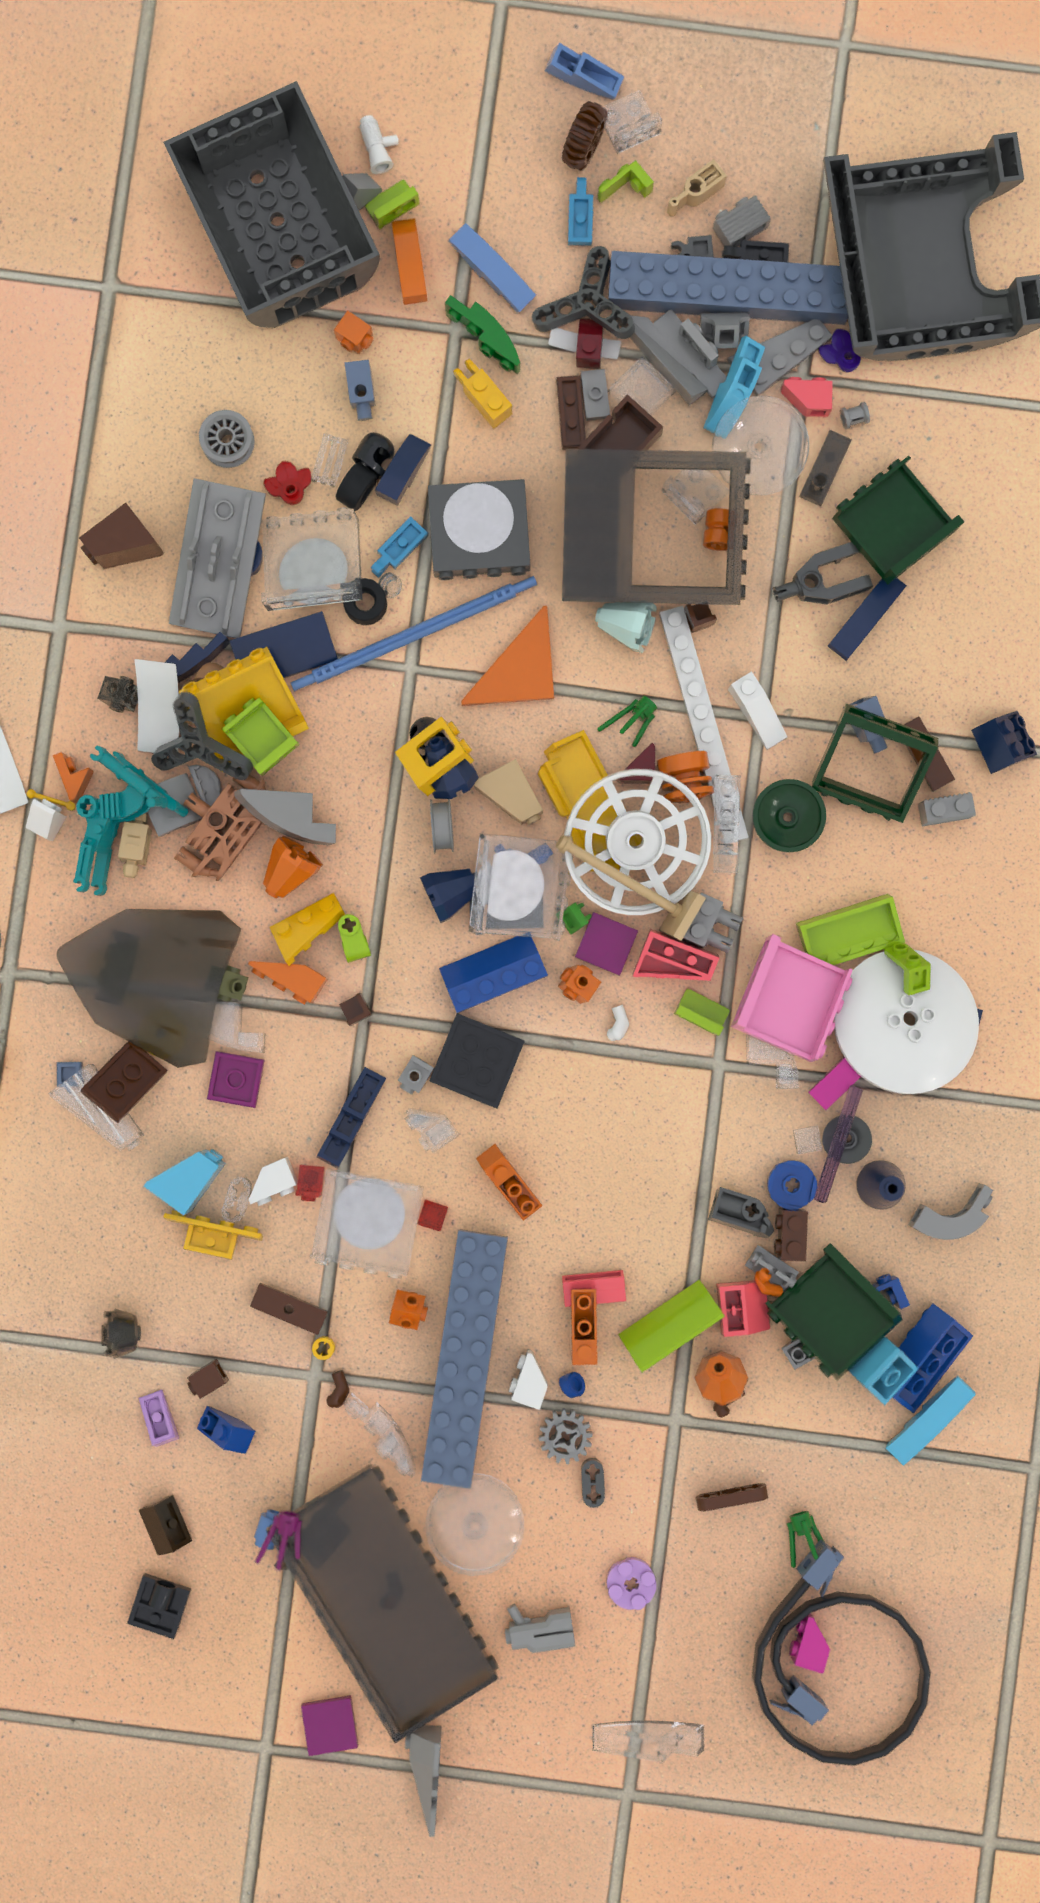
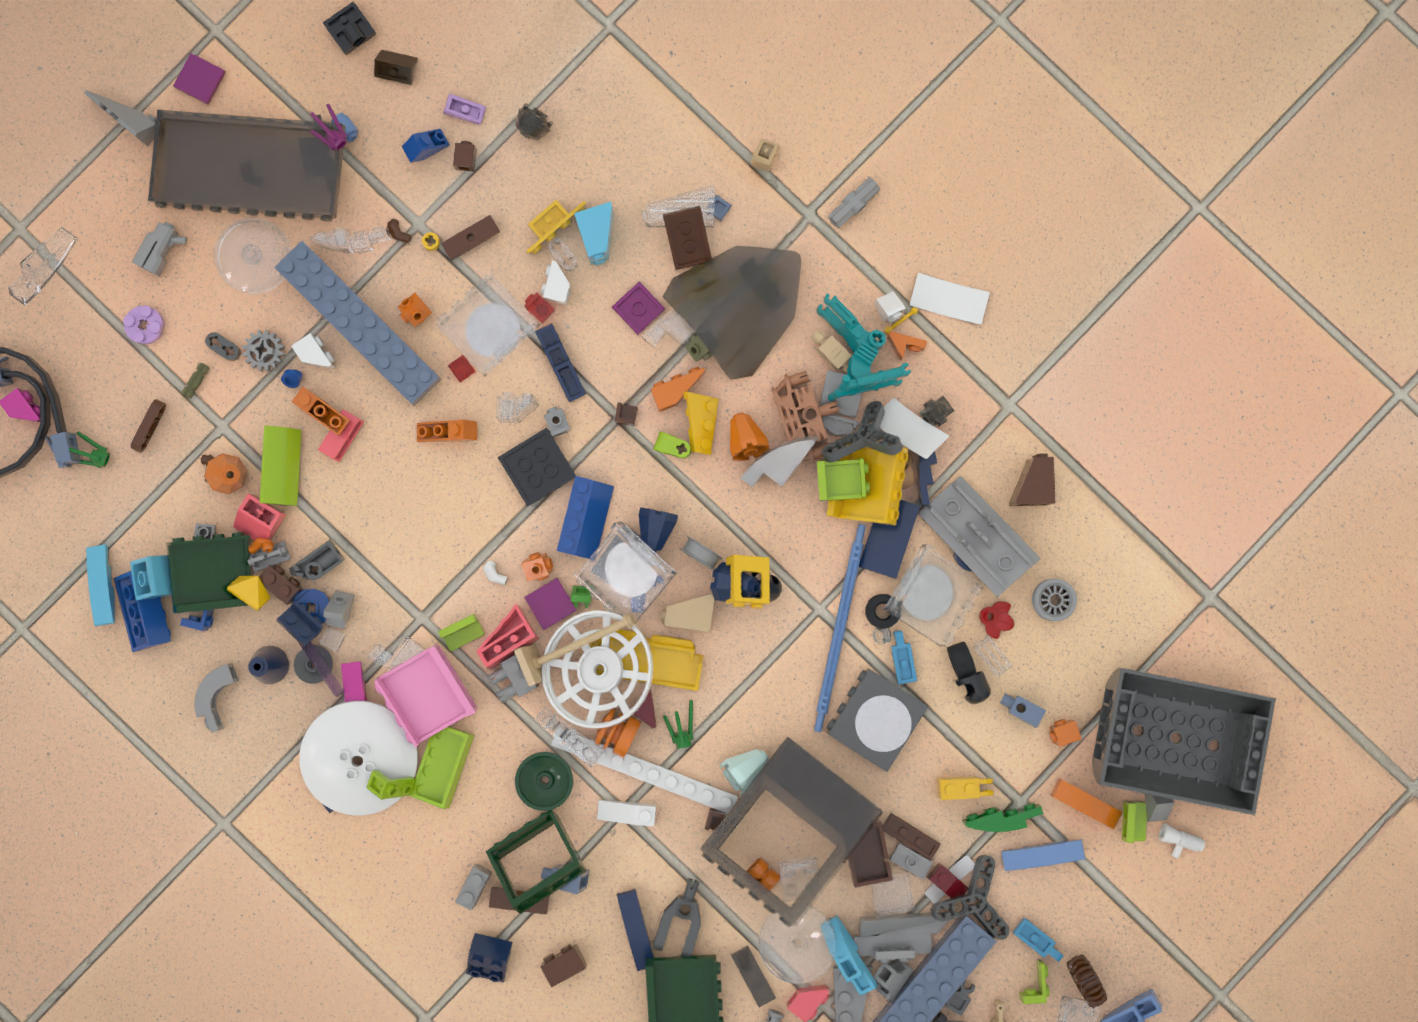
camera: 125 degrees right, 0 degrees up
(402, 469) = (952, 699): dark blue slope -> none
(521, 670) = (765, 678): orange tile -> none
(649, 1484) = (195, 380): none -> olive axle
(772, 1154) = (339, 609): none -> light grey brick
(815, 1182) = (300, 623): none -> dark blue bracket
(821, 1259) = (250, 591): none -> yellow slope
(955, 662) = (563, 964): none -> reddish brown brick

